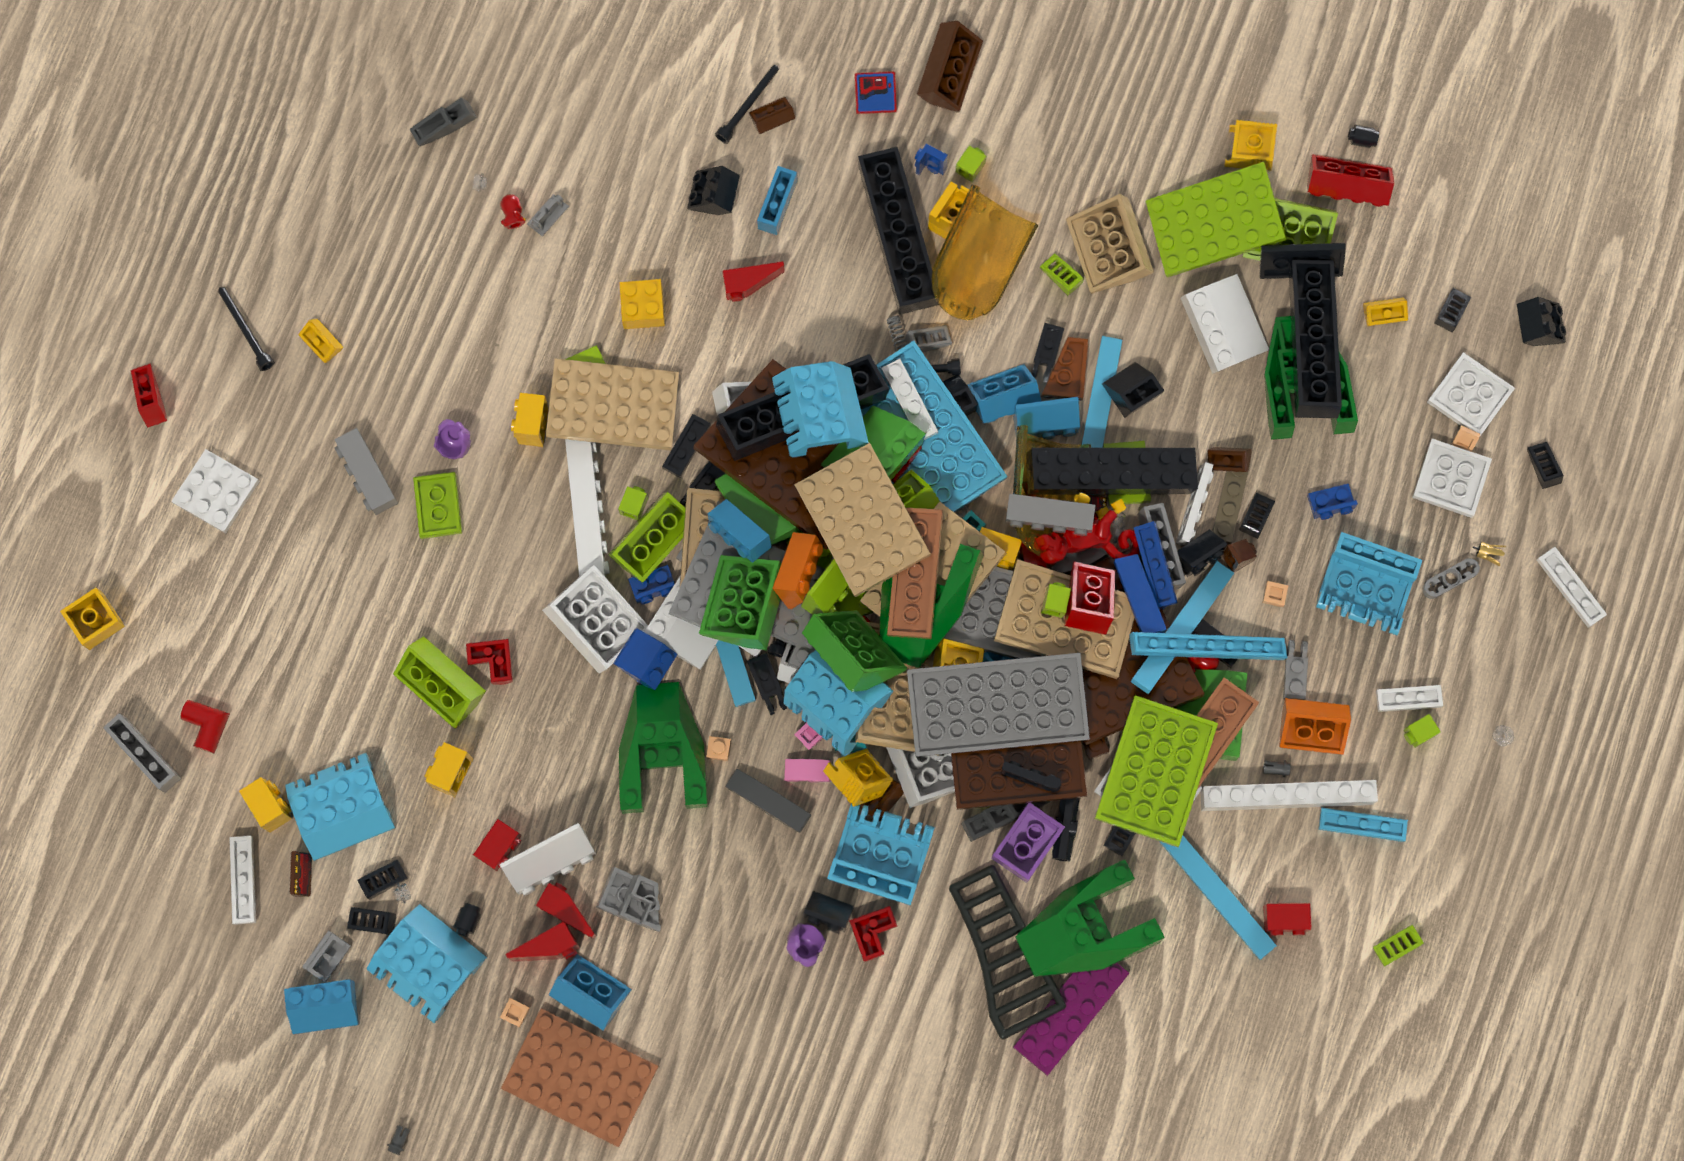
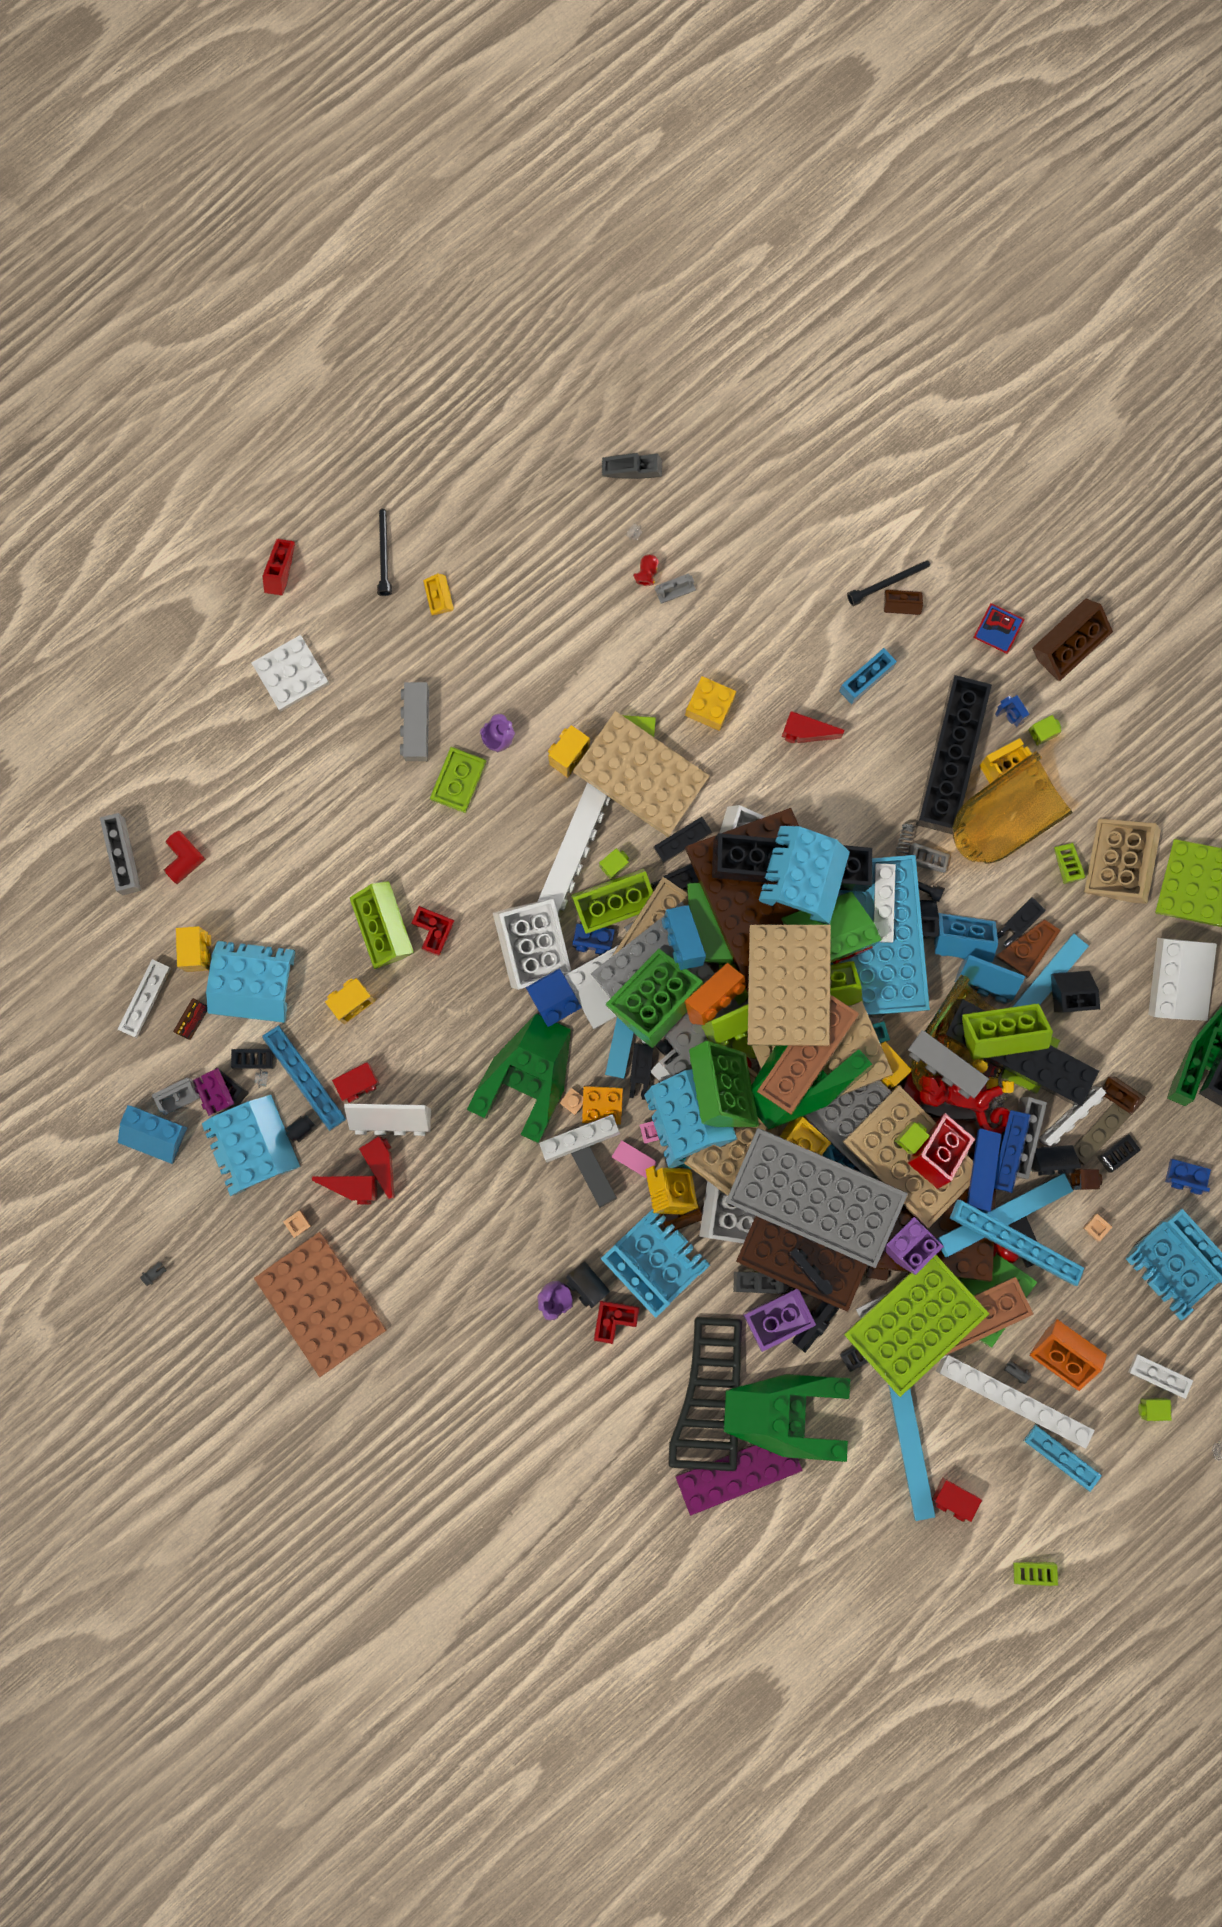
camera: 30 degrees right, 5 degrees up
(92, 618) = (139, 724): yellow brick -> none
(365, 927) = (216, 1089): none -> magenta plate
(443, 869) = (304, 1078): none -> dark azure tile
(589, 992) = (364, 1241): dark azure slope -> none
(631, 899) = (437, 1184): light grey slope -> none
(713, 191) = (820, 640): black slope -> none
(744, 778) = (579, 1138): none -> white plate
(748, 736) = (601, 1102): none -> light orange hinge
(1088, 455) = (1006, 1031): none -> lime slope
(1112, 700) = (913, 1246): none -> medium lavender slope
(1295, 672) = (1077, 1301): light grey hinge -> none

